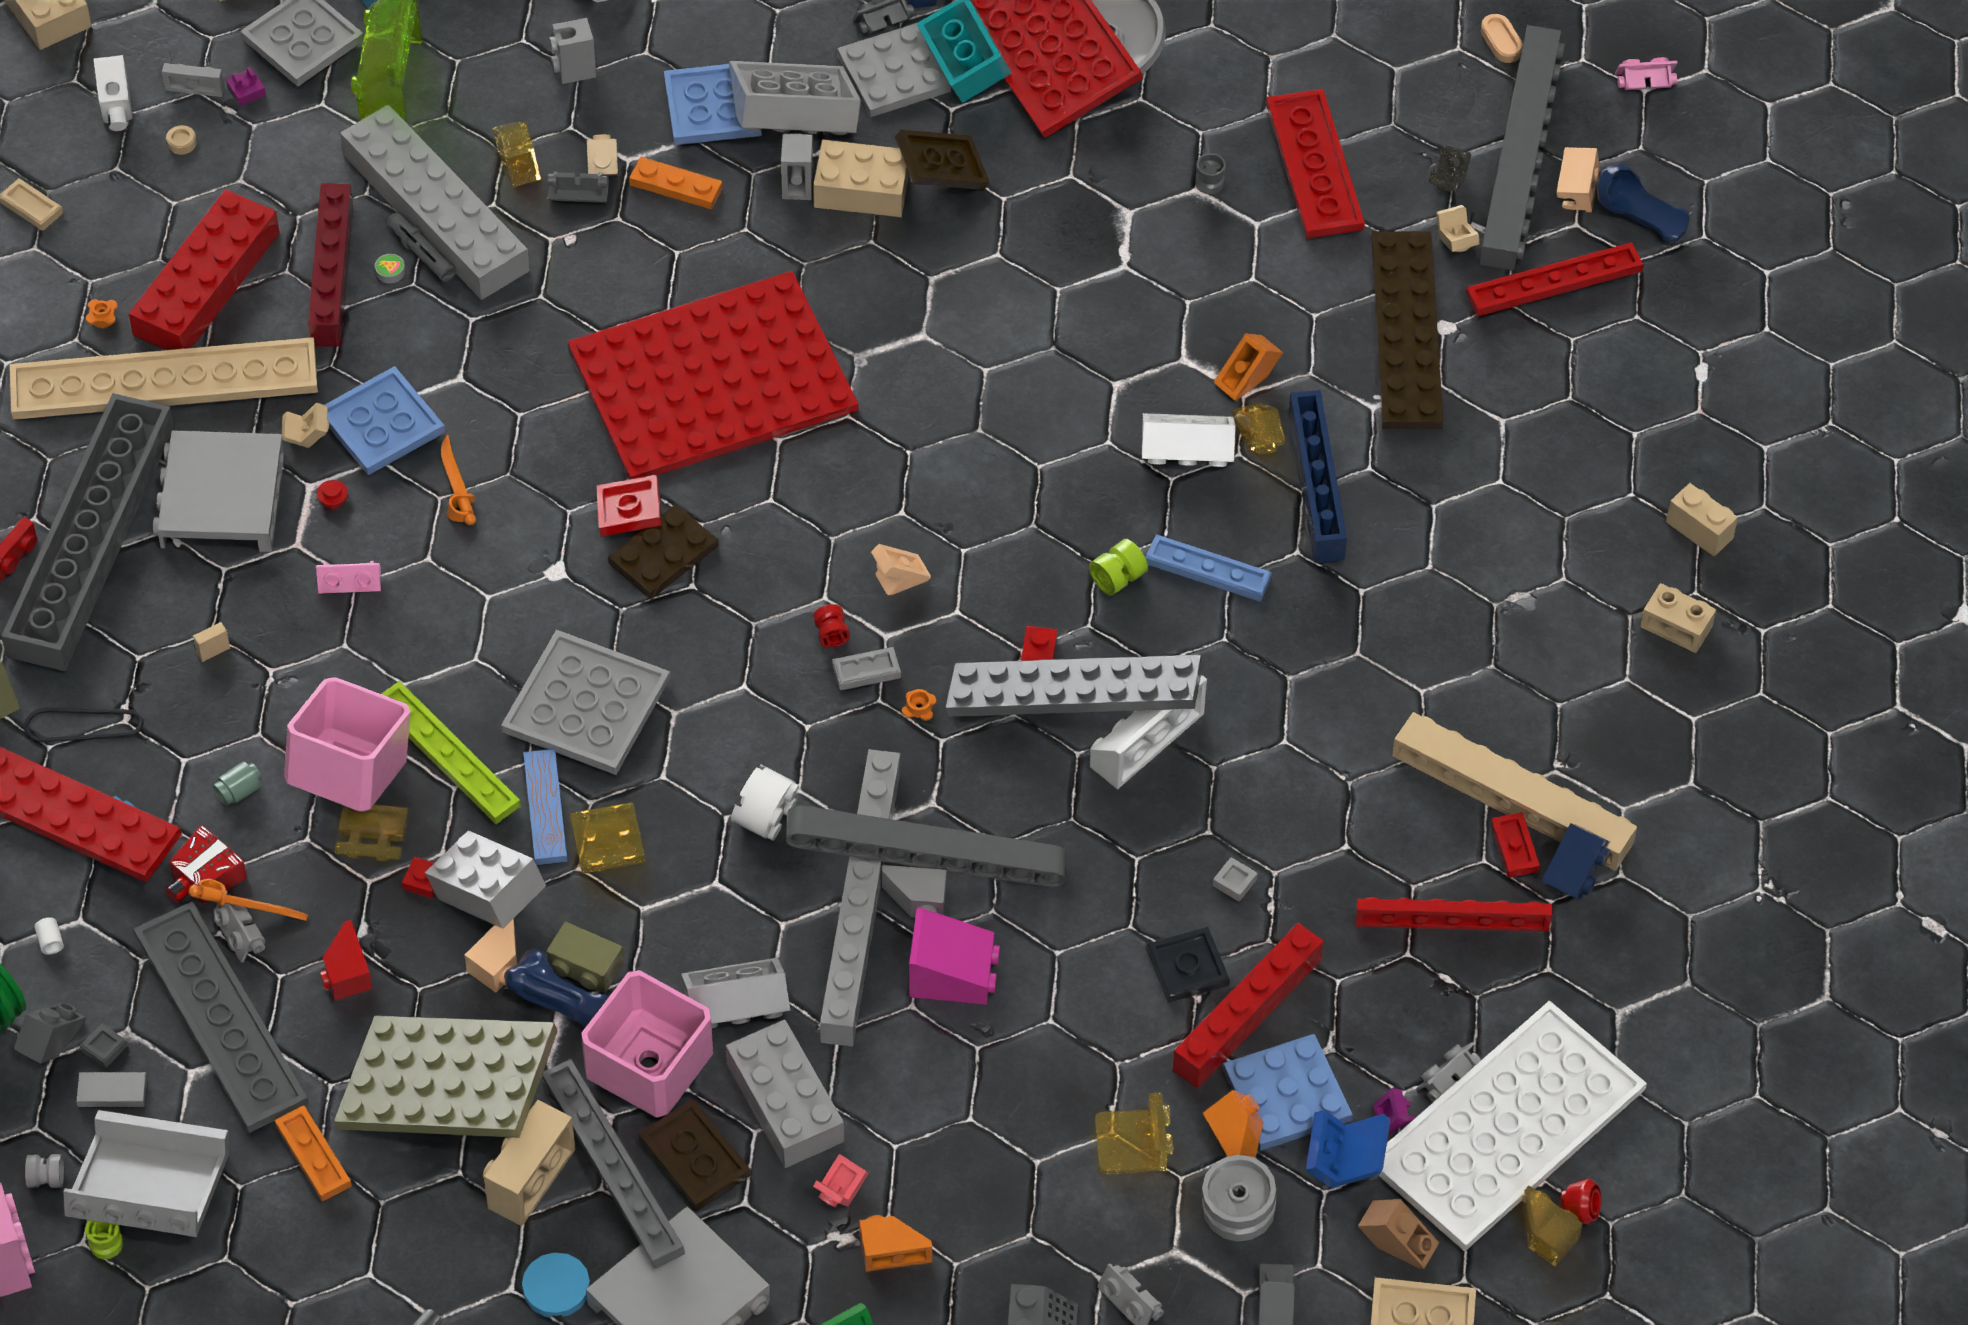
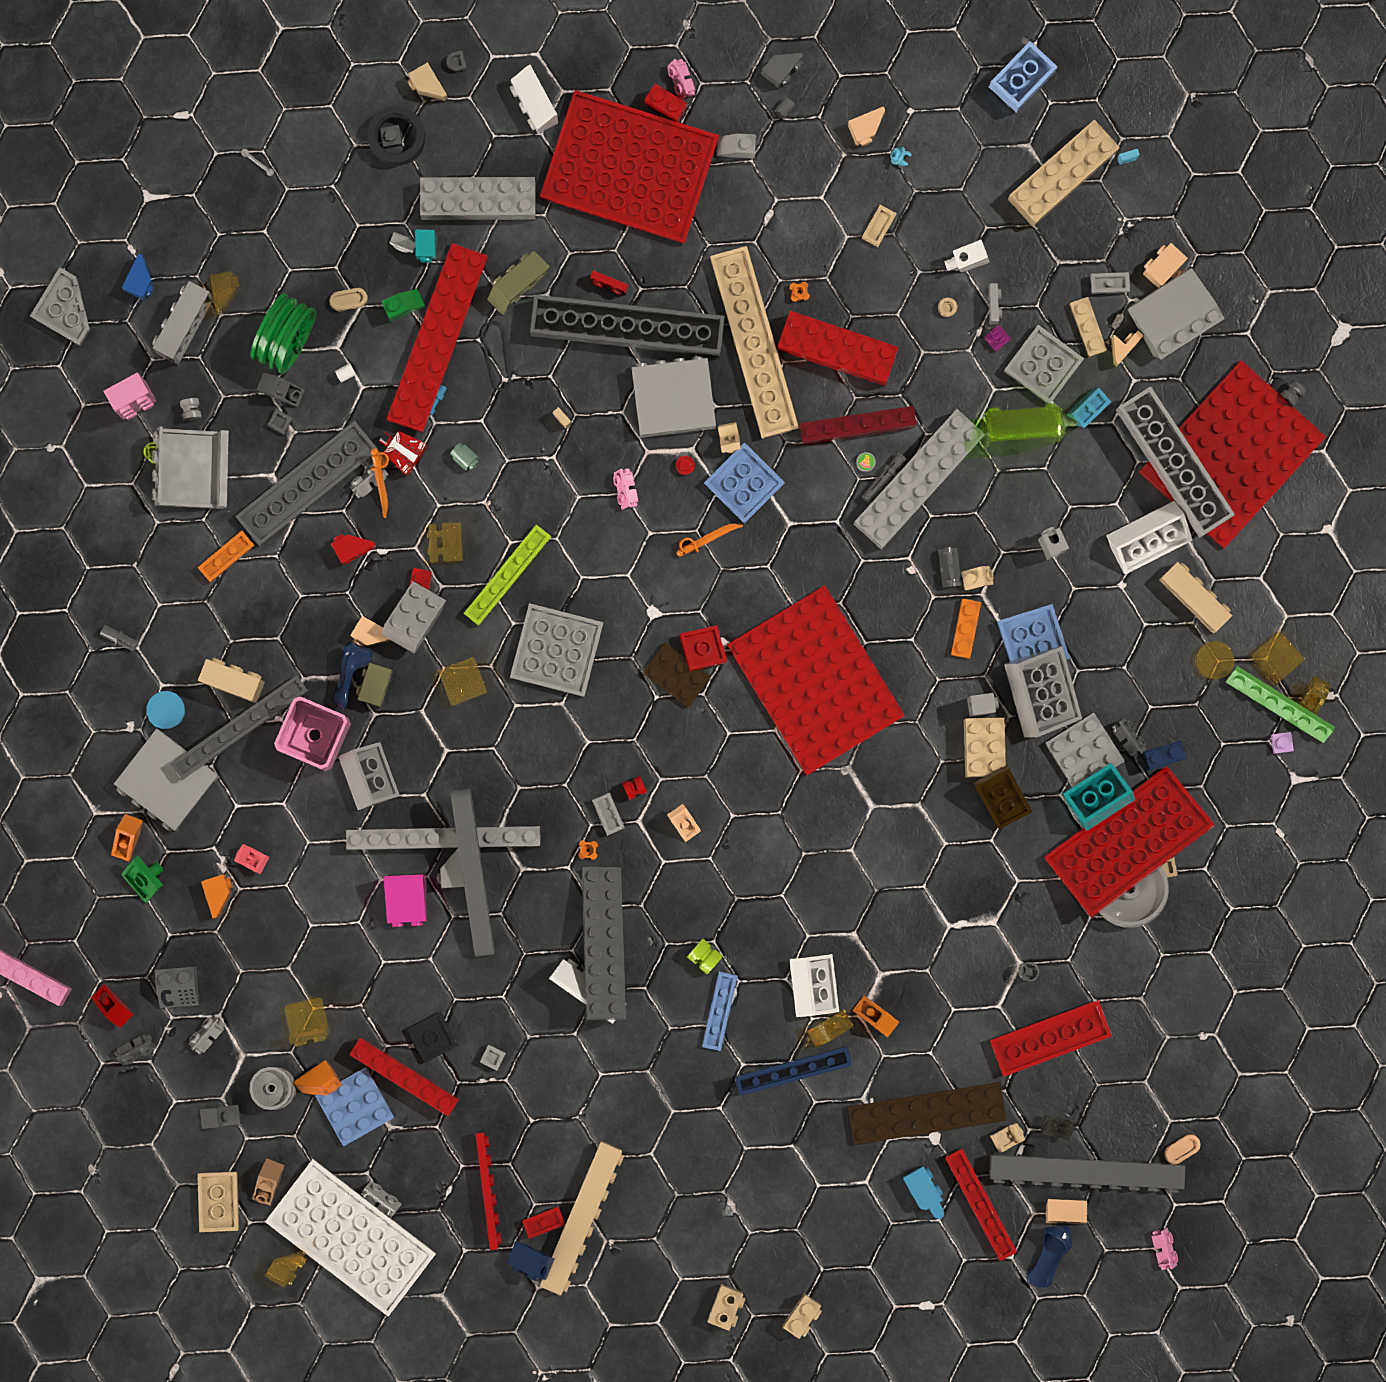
camera: 75 degrees right, 30 degrees up
(111, 1089) = (251, 433): light grey tile -> none
(347, 744) = (502, 512): bright pink plate -> none
(446, 1076) = (277, 622): plate -> none
(517, 152) = (969, 522): clear yellow slope -> none
(545, 807) = (480, 640): medium blue tile -> none
(694, 1154) = (258, 772): dark brown plate -> none
(764, 802) = (495, 770): white brick -> none
(785, 1093) = (303, 817): light grey brick -> none
(1039, 643) = (639, 916): red plate -> none
(1346, 1152) = (315, 1147): blue bracket -> none
(1394, 1107) = (347, 1169): magenta tile -> none
(1526, 342) = (924, 1191): none -> dark azure hinge
(1583, 1200) = (304, 1285): red cone -> none

